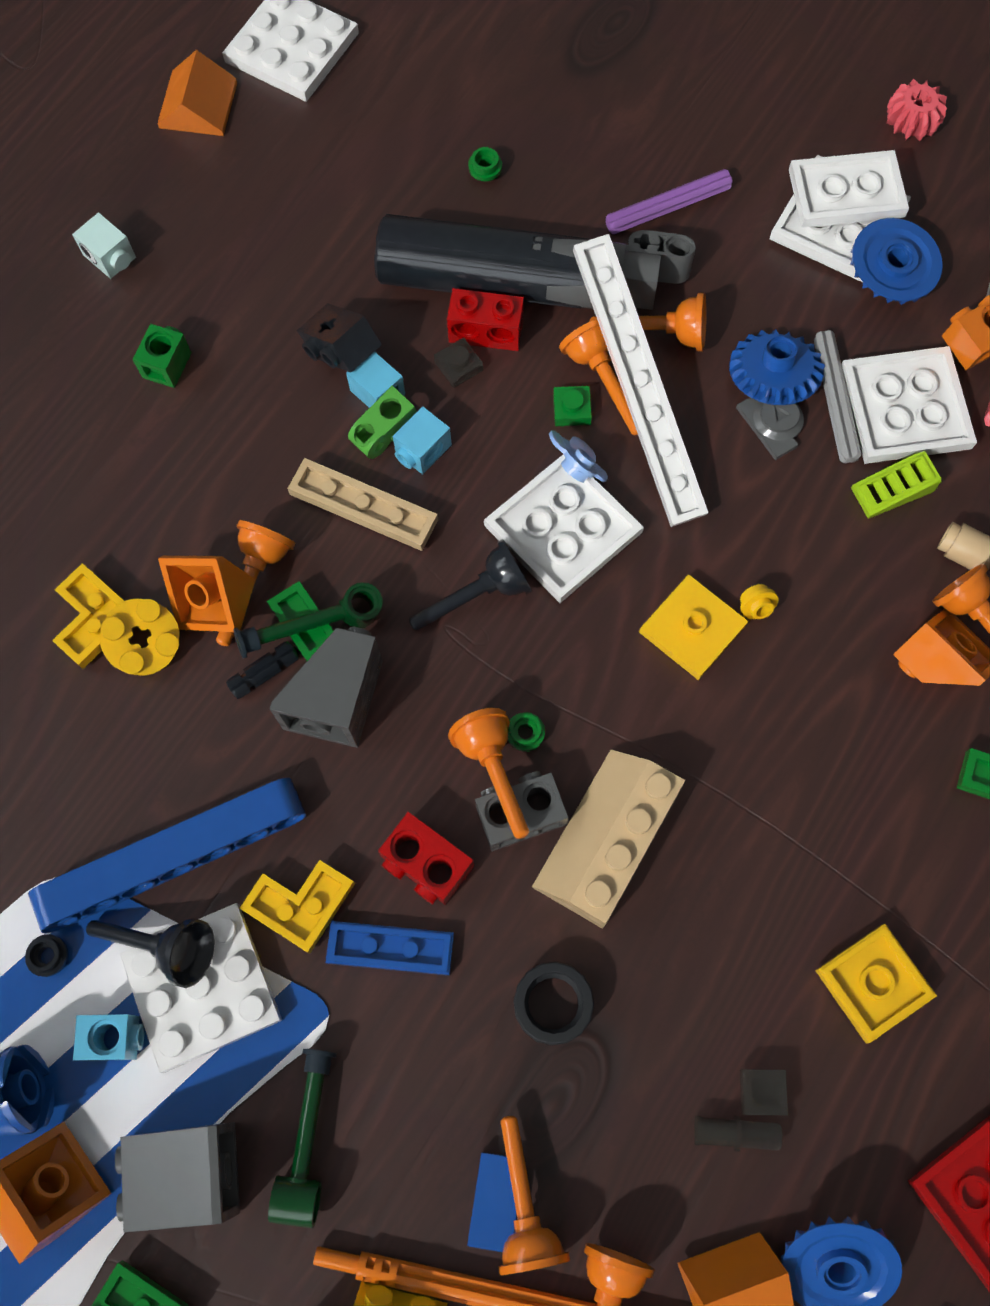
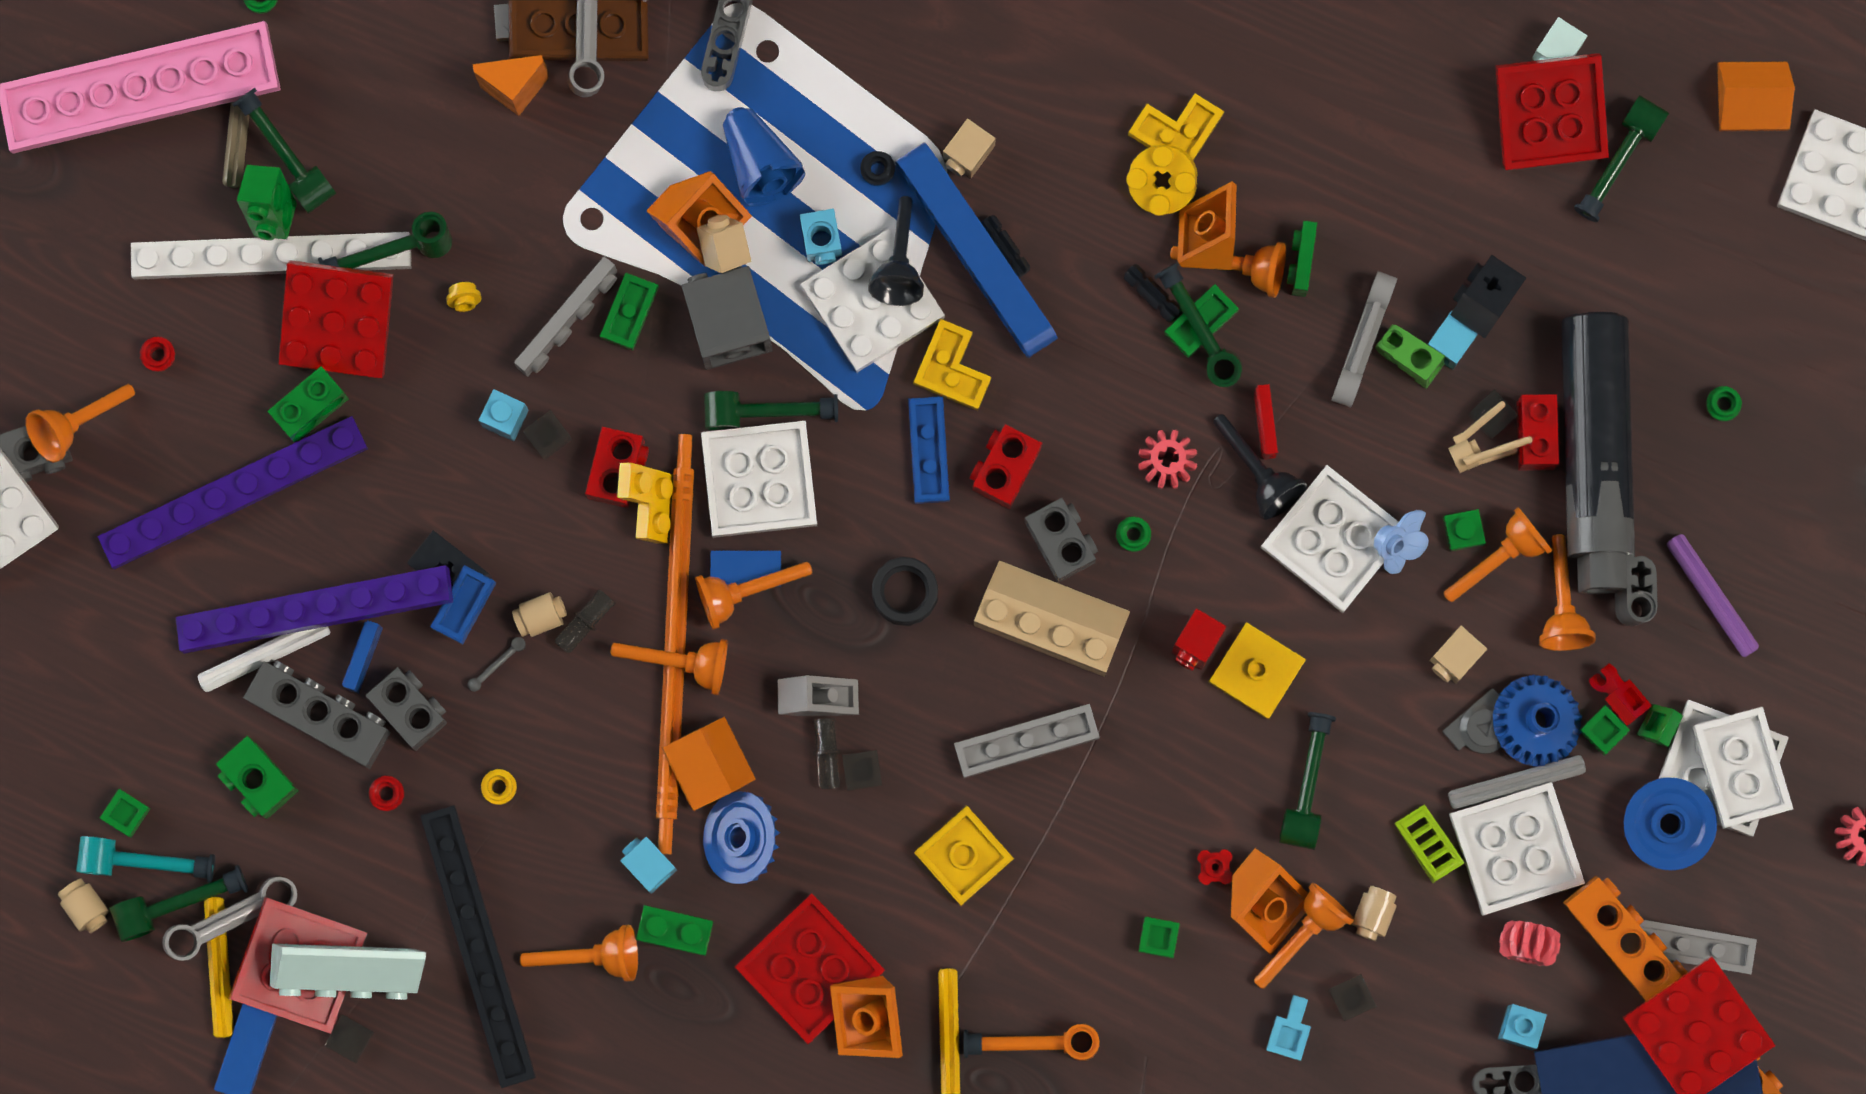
camera: 80 degrees right, 10 degrees up
(50, 844) = (968, 149): none -> tan brick
(85, 1165) = (723, 243): none -> tan brick
(164, 255) = (1552, 111): none -> red plate
(167, 367) = (1435, 140): green brick -> none
(172, 818) = (1006, 245): none -> black axle
(198, 186) = (1643, 123): none -> dark green piece
(250, 506) = (1300, 272): none -> green plate
(317, 445) = (1364, 339): none -> light grey piece
(332, 689) = (1140, 360): dark grey slope -> none
(363, 504) = (1326, 351): tan plate -> none
(387, 1167) = (759, 479): none -> white plate
(421, 441) = (1397, 393): medium azure brick -> none
(426, 573) = (1265, 422): none -> red tile
(445, 667) = (1159, 450): none -> coral gear
(482, 738) = (1115, 496): orange piece -> none
(496, 383) = (1468, 455): none -> tan plant
(640, 380) = (1484, 585): white plate -> none
(660, 675) = (1198, 640): none -> red brick
(668, 1135) = (817, 696): none -> light grey slope
(703, 426) = (1457, 655): none -> tan brick
(747, 889) = (1026, 741): none -> light grey plate
(758, 602) = (1288, 725): yellow plate -> none
(764, 286) = (1623, 696): none -> red plate
(793, 259) = (1660, 725): none -> green plate
(793, 309) = (1604, 730): none -> green plate
(869, 606) = (1300, 825): none -> dark green piece
(898, 710) = (1221, 875): none -> red plate

